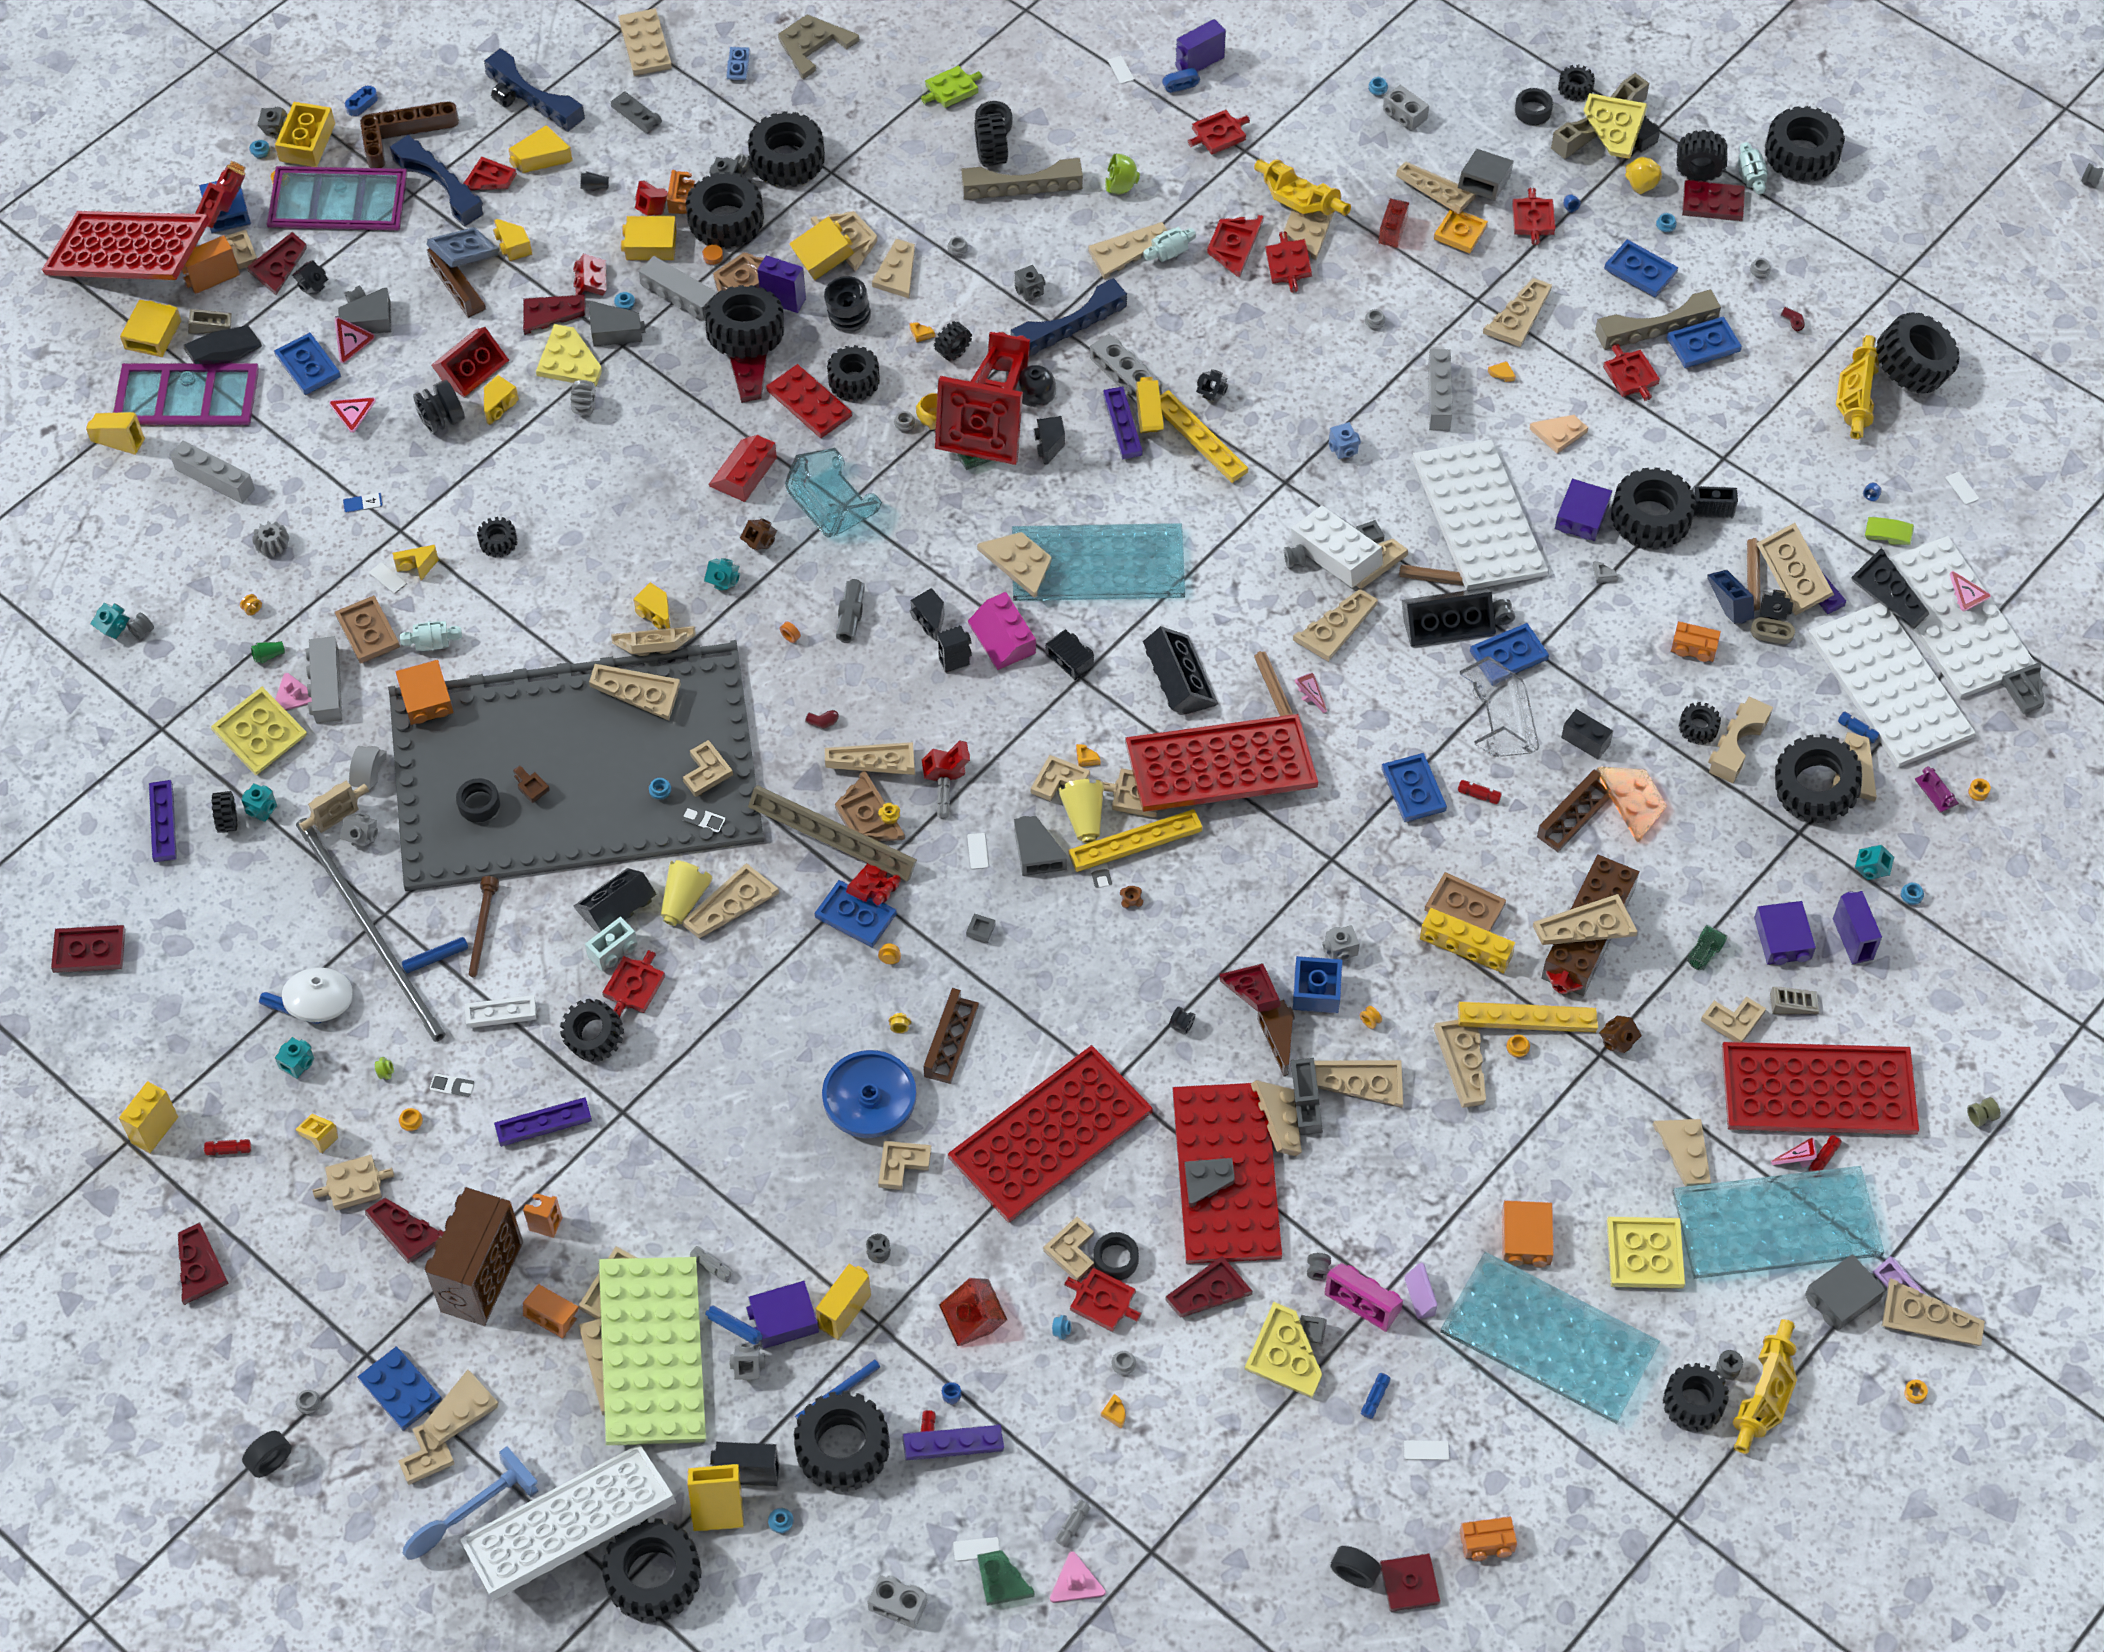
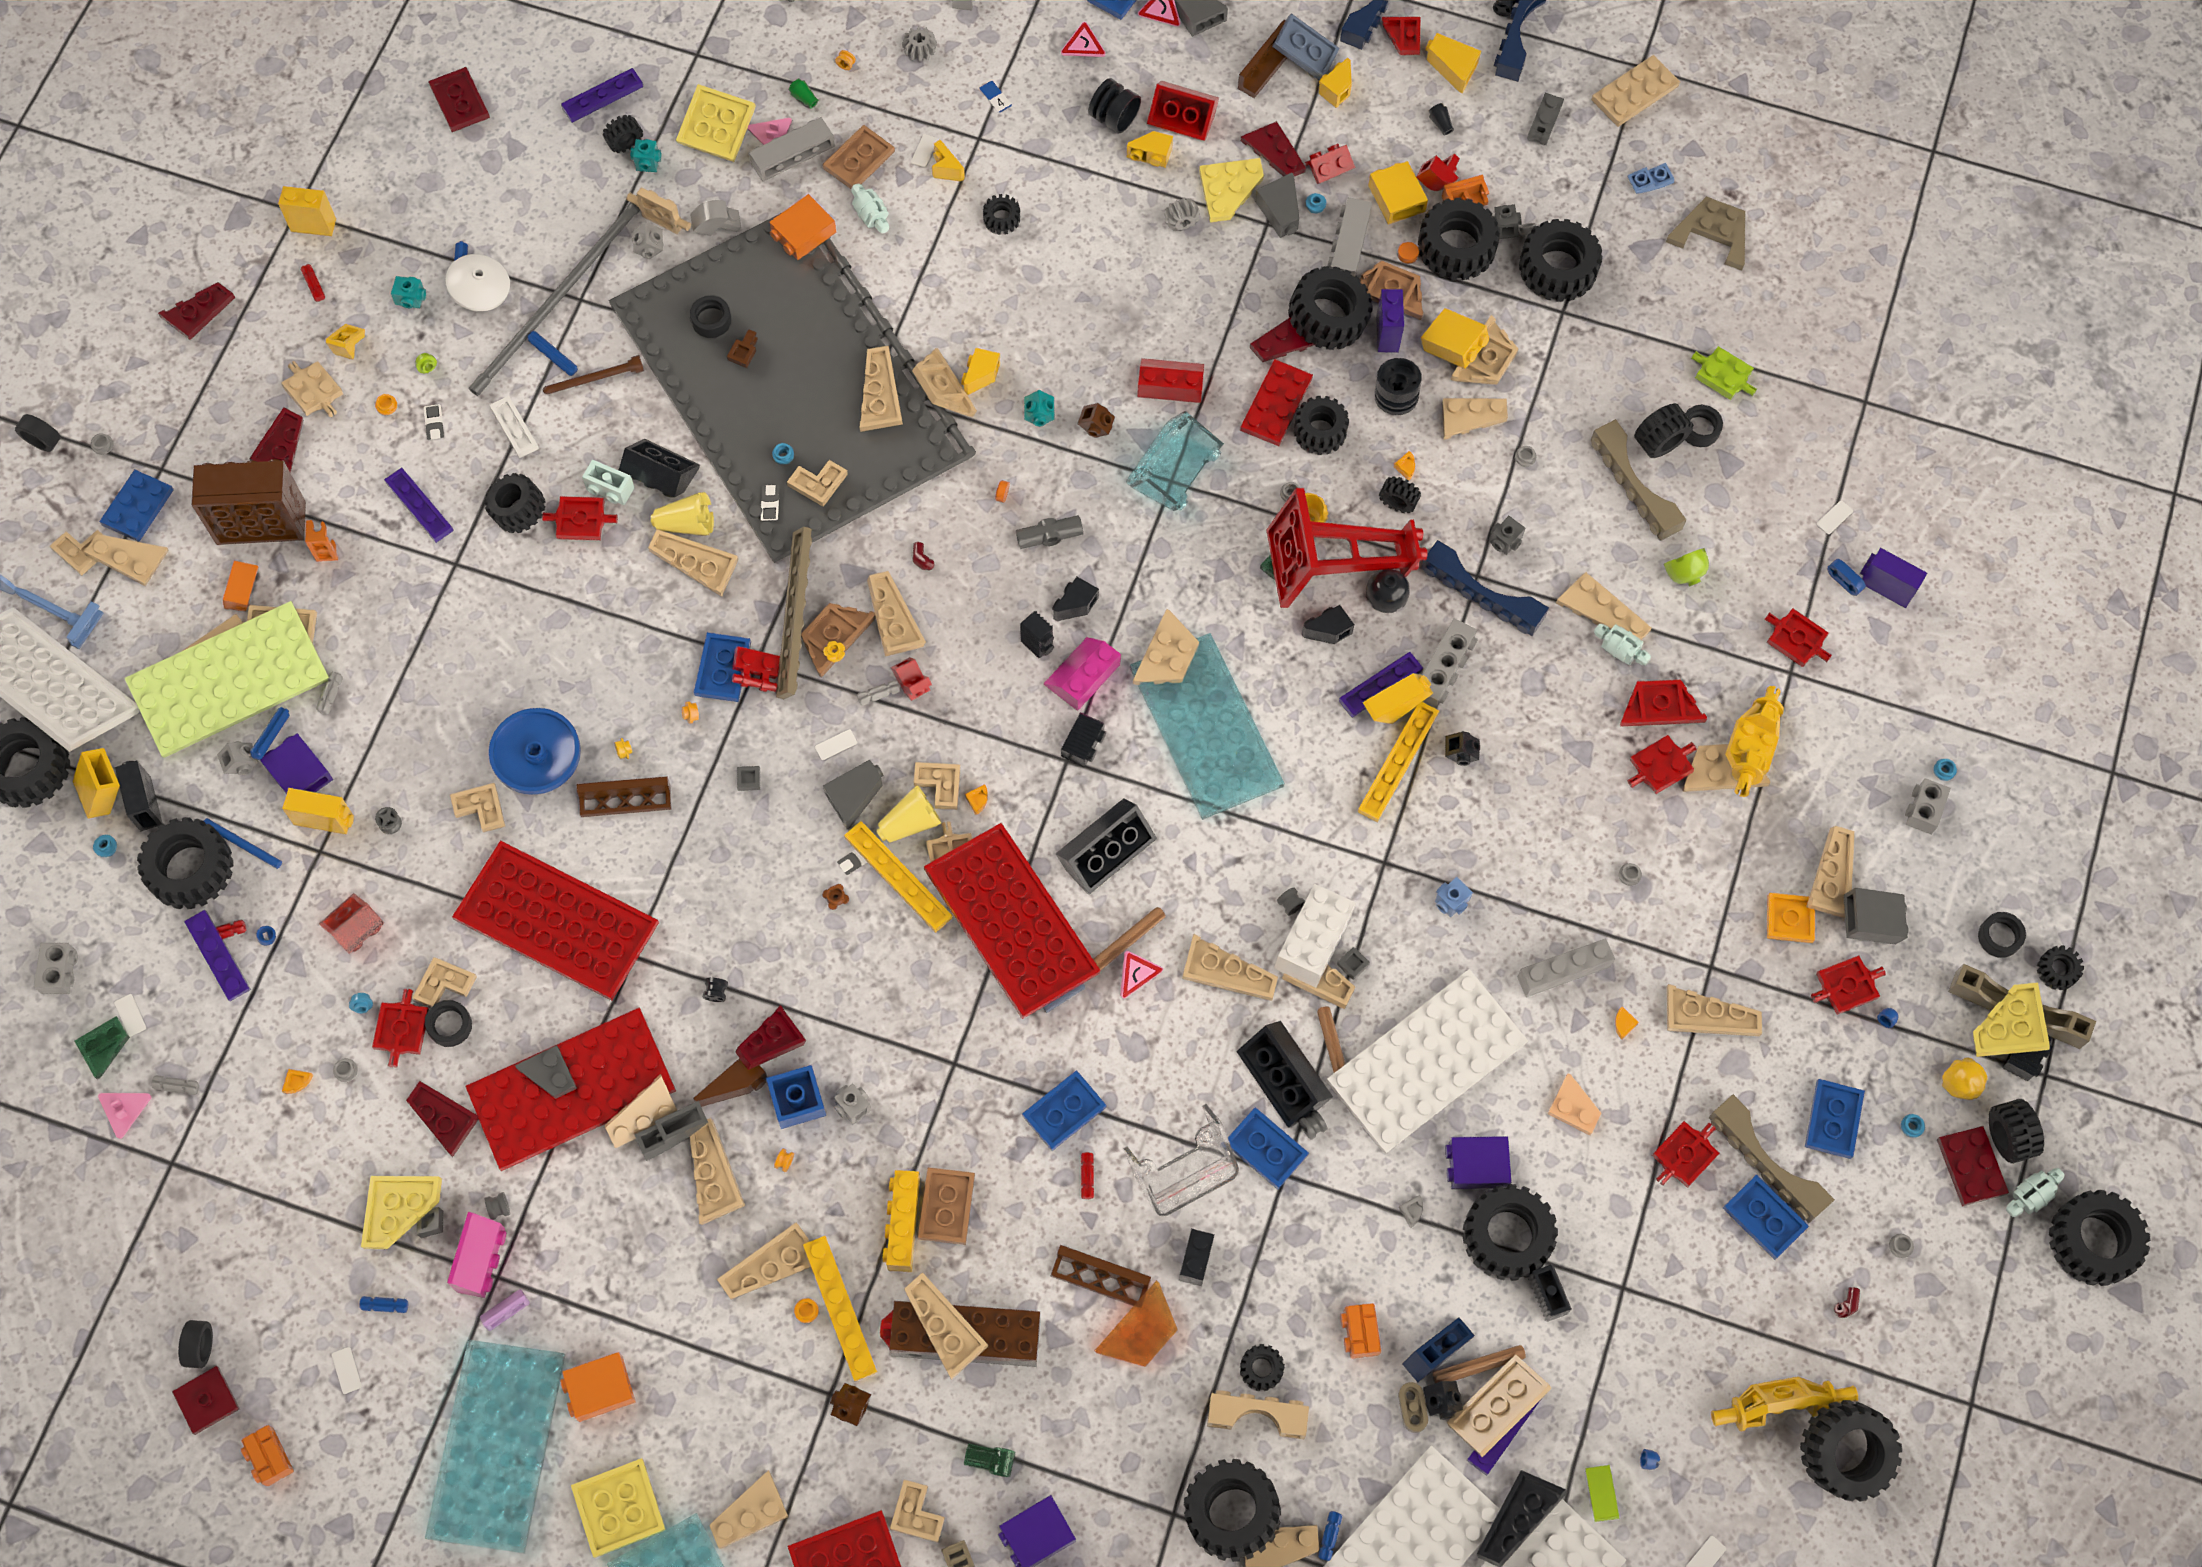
camera: 65 degrees right, 10 degrees up
(1393, 222) = (1763, 847): clear red brick -> none

